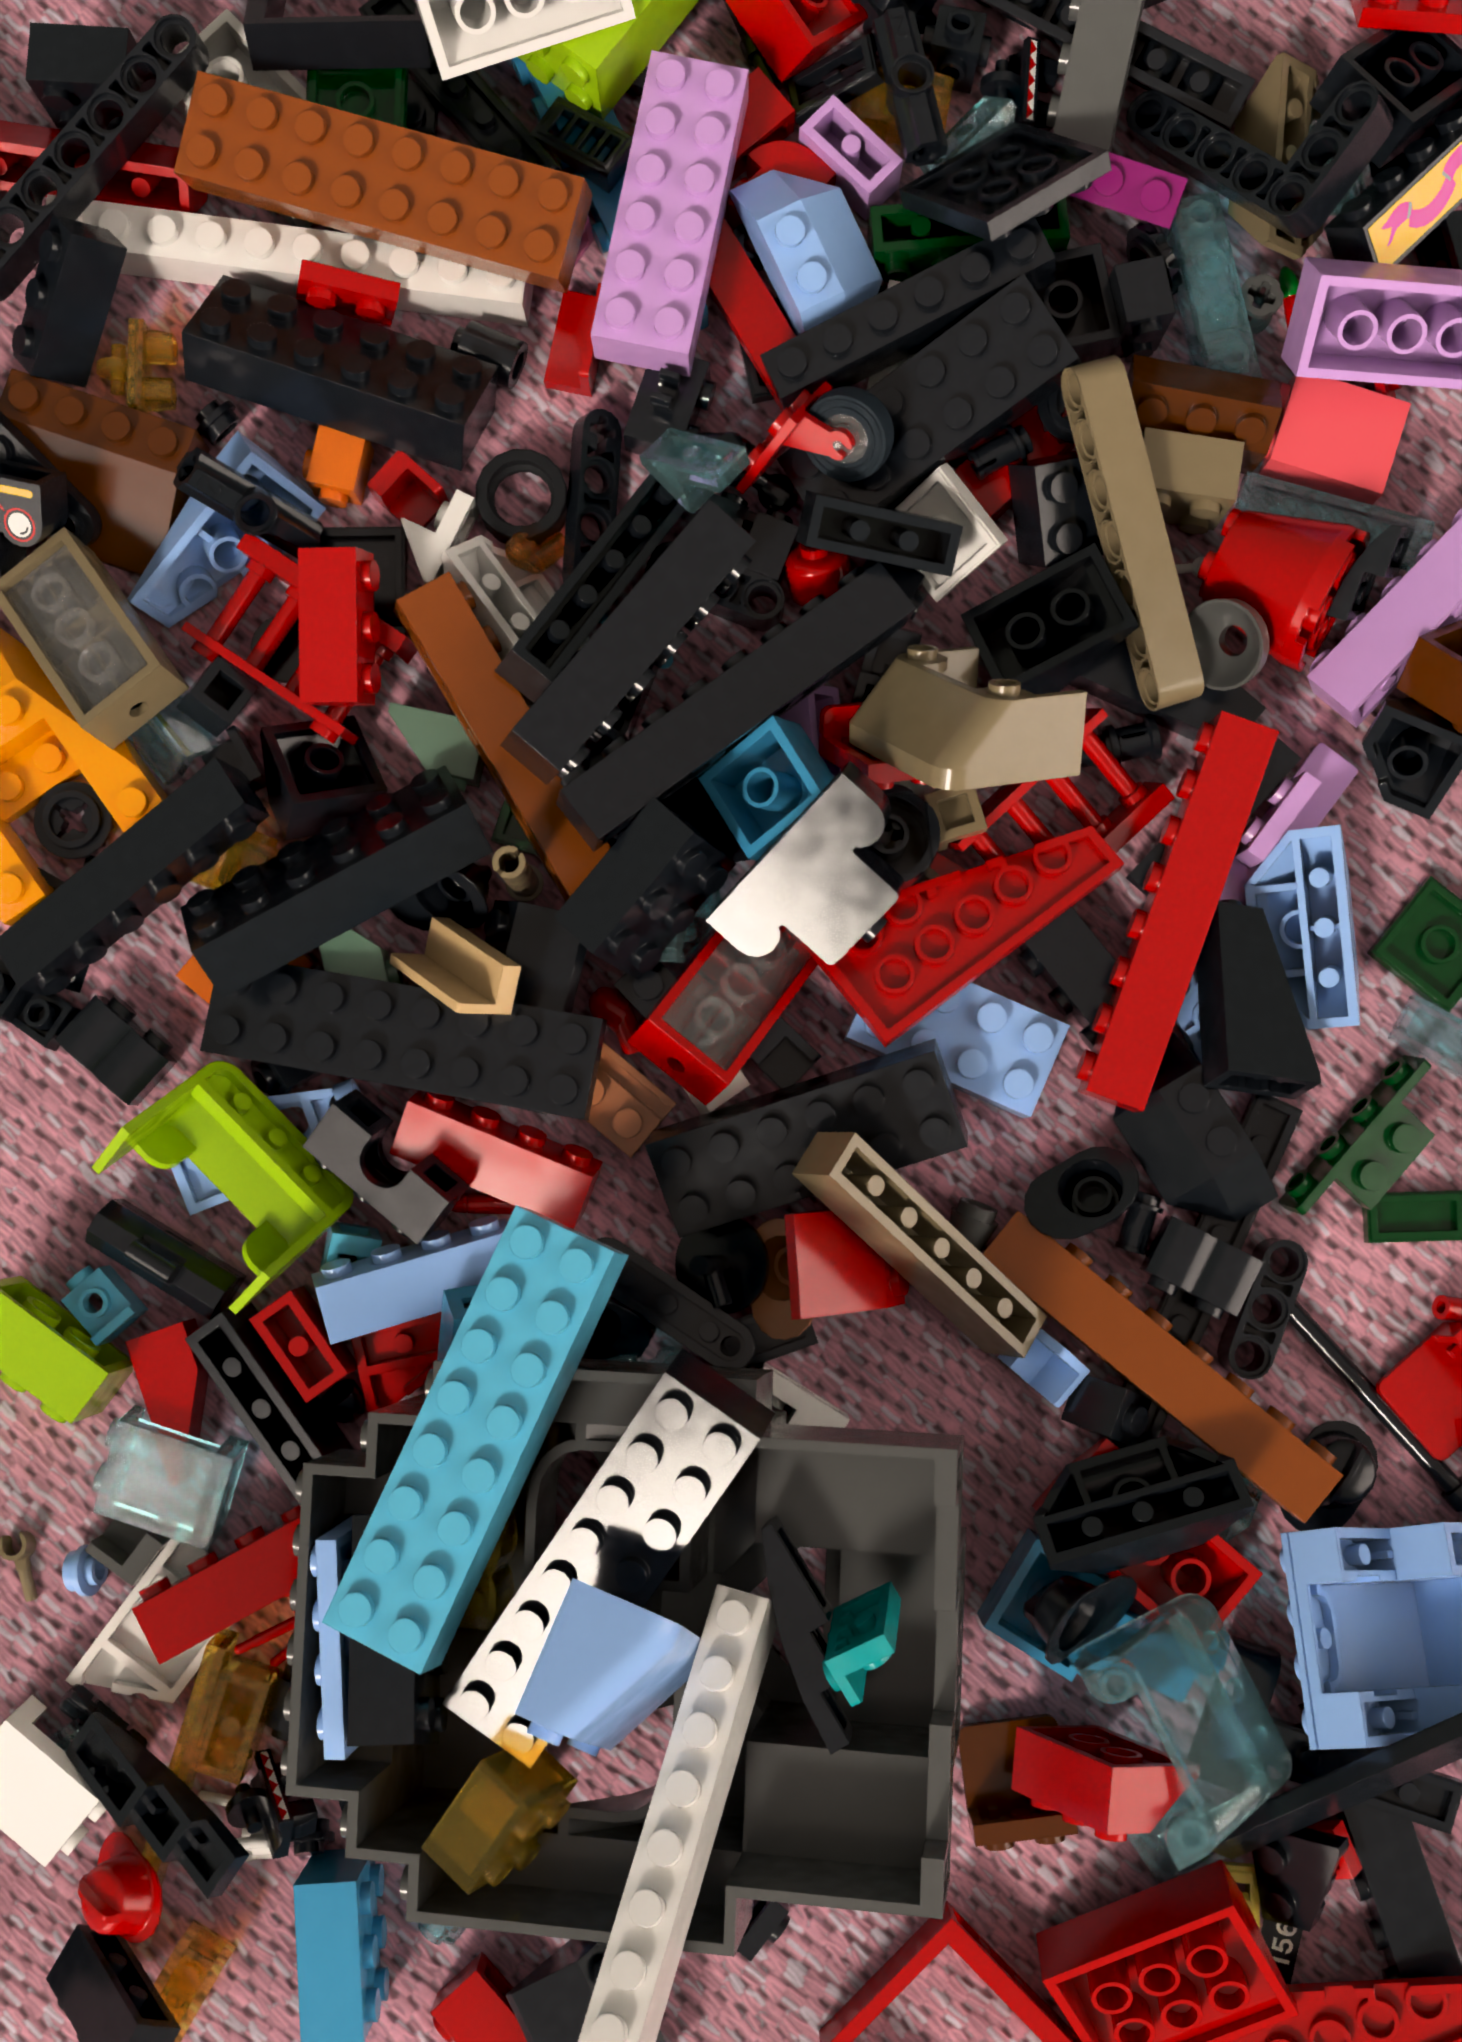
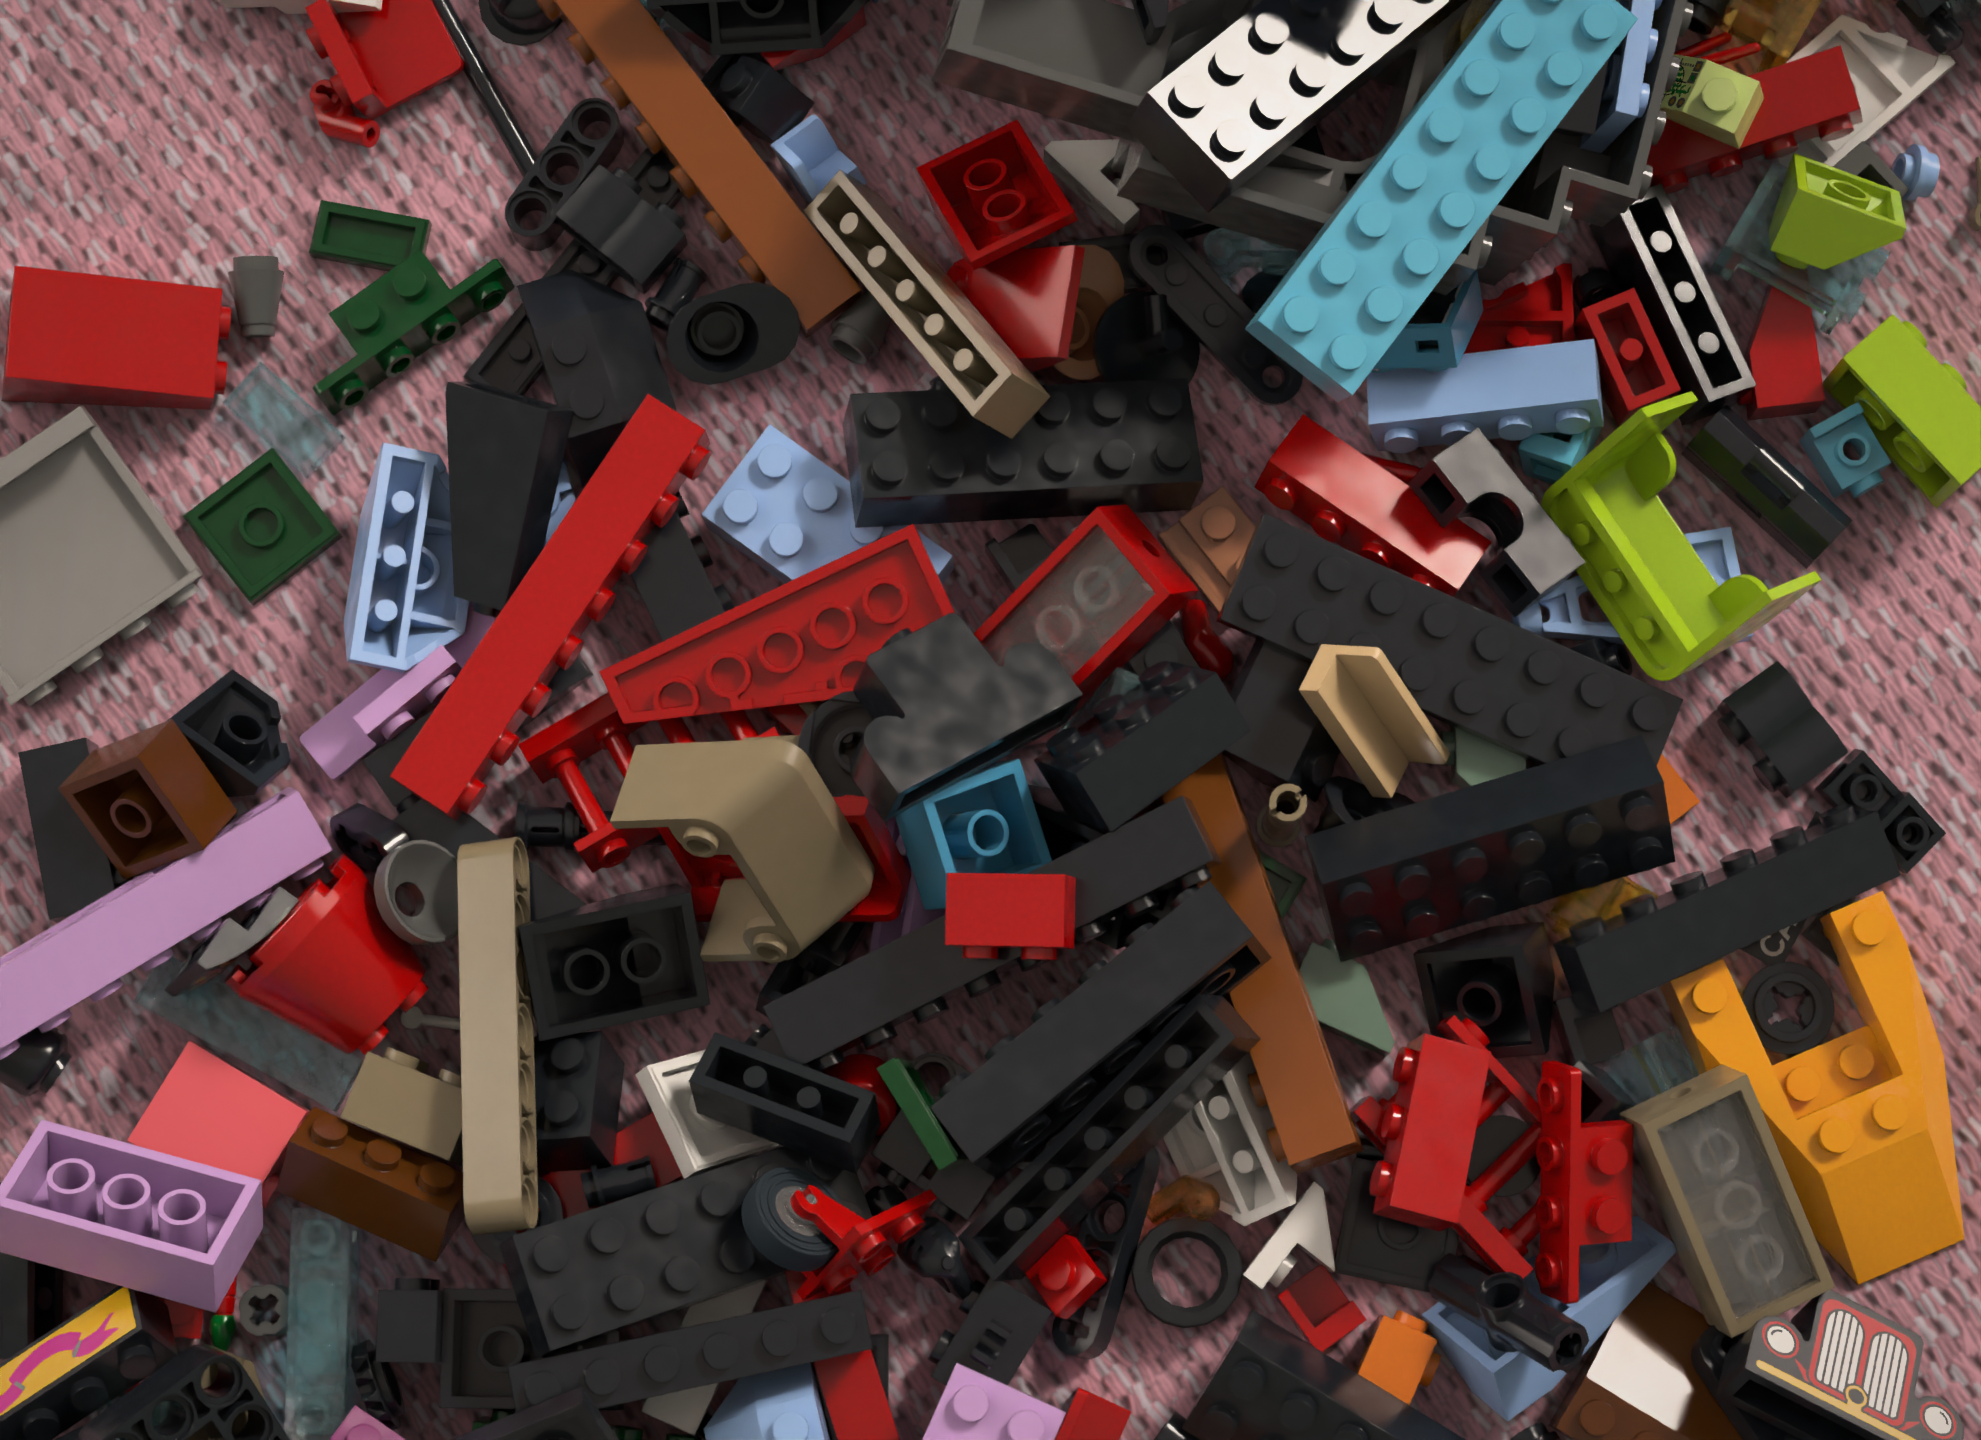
camera: 165 degrees left, 5 degrees down
(140, 1504) = (1831, 216): none -> lime slope
(208, 620) = (1582, 1181): none -> red bracket
(260, 1587) = (1713, 100): none -> yellowish green slope
(617, 469) = (1066, 1276): none -> red plate
(693, 465) = (978, 1235): clear light blue slope -> none
(724, 708) = (1010, 912): none -> red brick
(774, 560) = (915, 1103): none -> dark green tile
(881, 1359) = (995, 195): none -> red slope
(1279, 695) = (366, 835): none -> black beam

